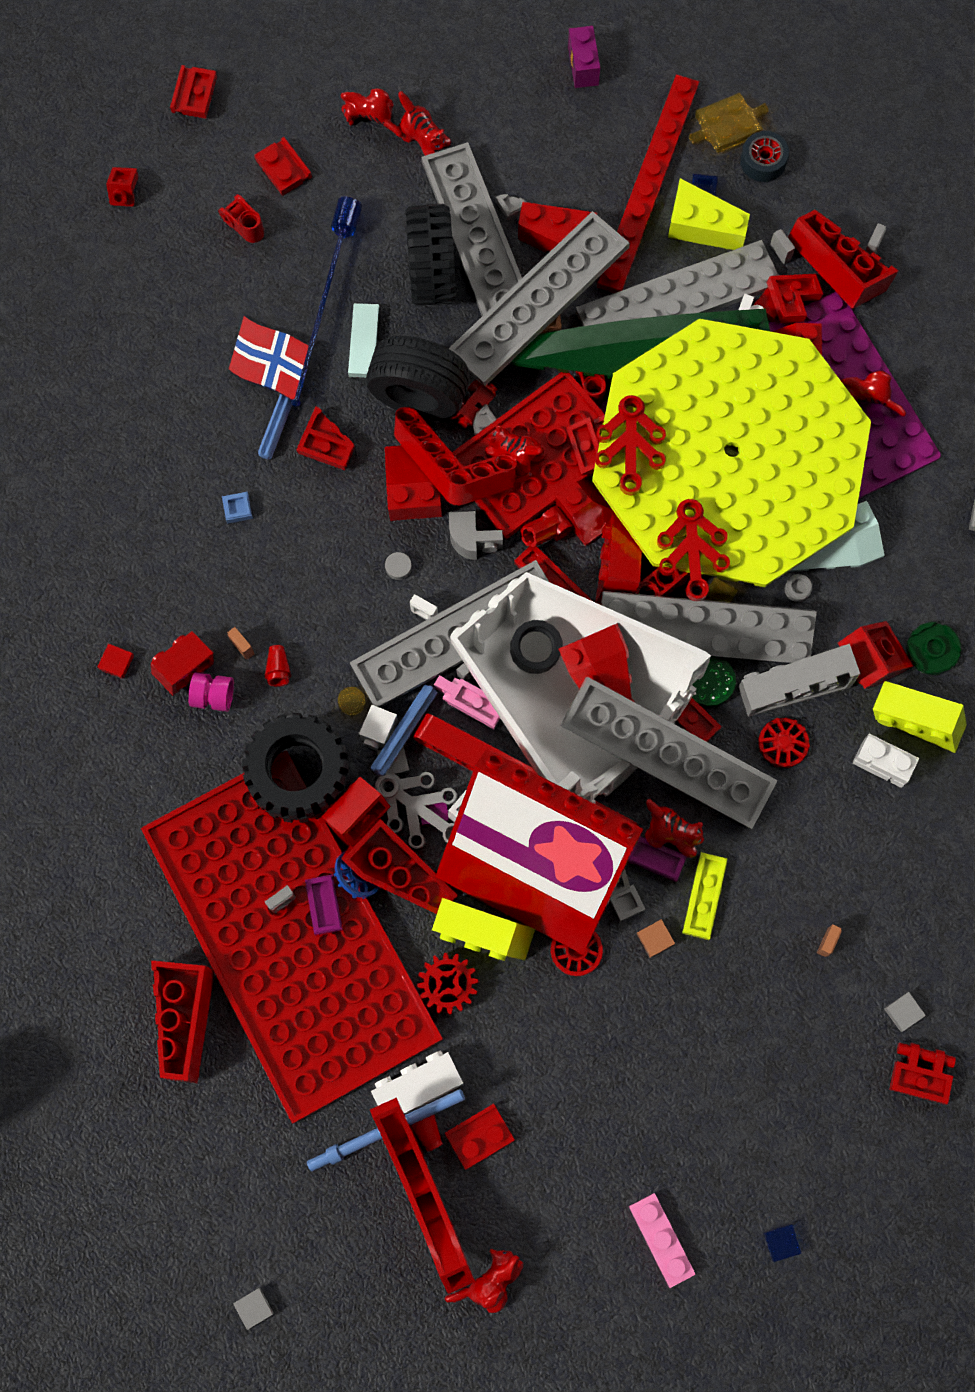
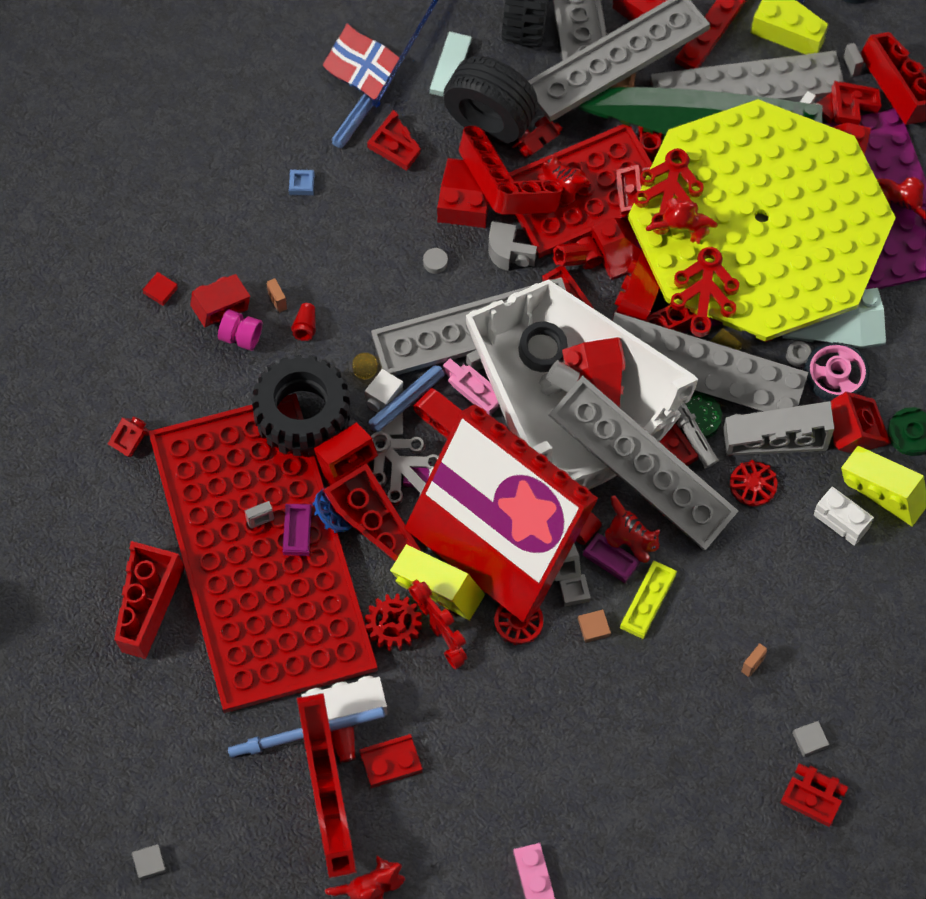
camera: 10 degrees right, 10 degrees down
(121, 836) = (128, 435): none -> red bracket
(422, 607) = (448, 298): white tile -> none
(483, 418) = (543, 150): light grey tile -> none
(520, 1001) = (439, 623): none -> red plant
(562, 681) = (558, 378): none -> light grey piece
(655, 473) = (683, 216): none -> red animal
(716, 708) = (695, 436): none -> light grey pin
(849, 579) = (840, 363): none -> bright pink wheel

